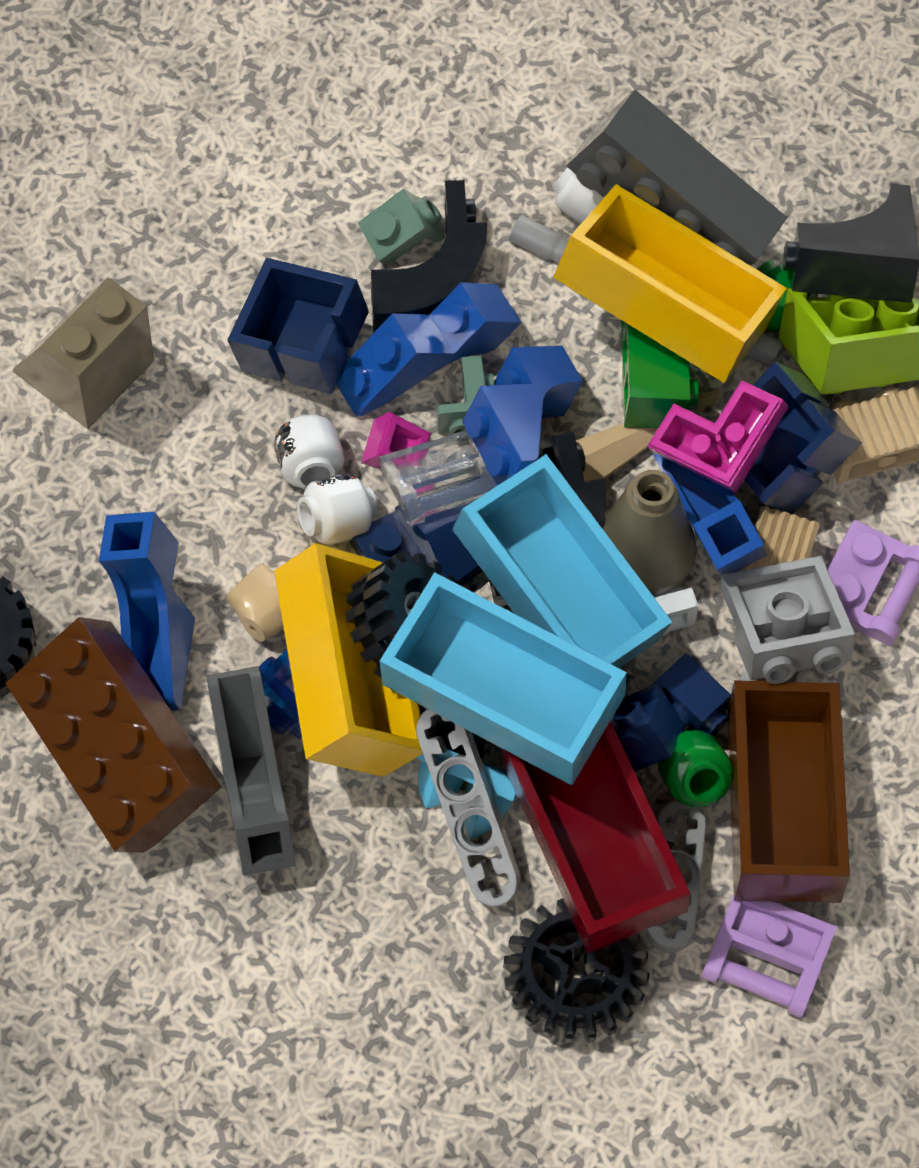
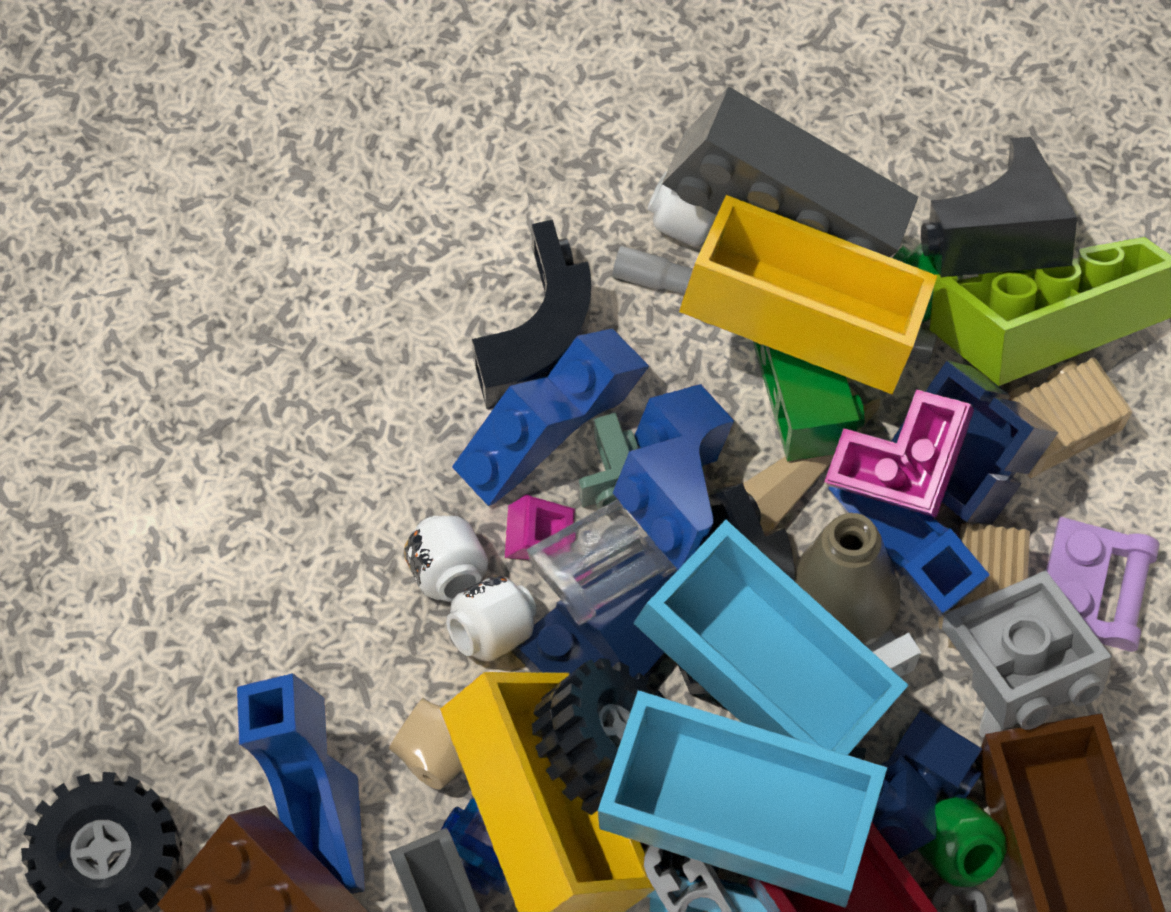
camera: 10 degrees left, 0 degrees up
(92, 353) = (178, 493): dark tan slope -> none
(298, 325) = (405, 417): dark blue piece -> none
(401, 225) = (492, 282): sand green bracket -> none

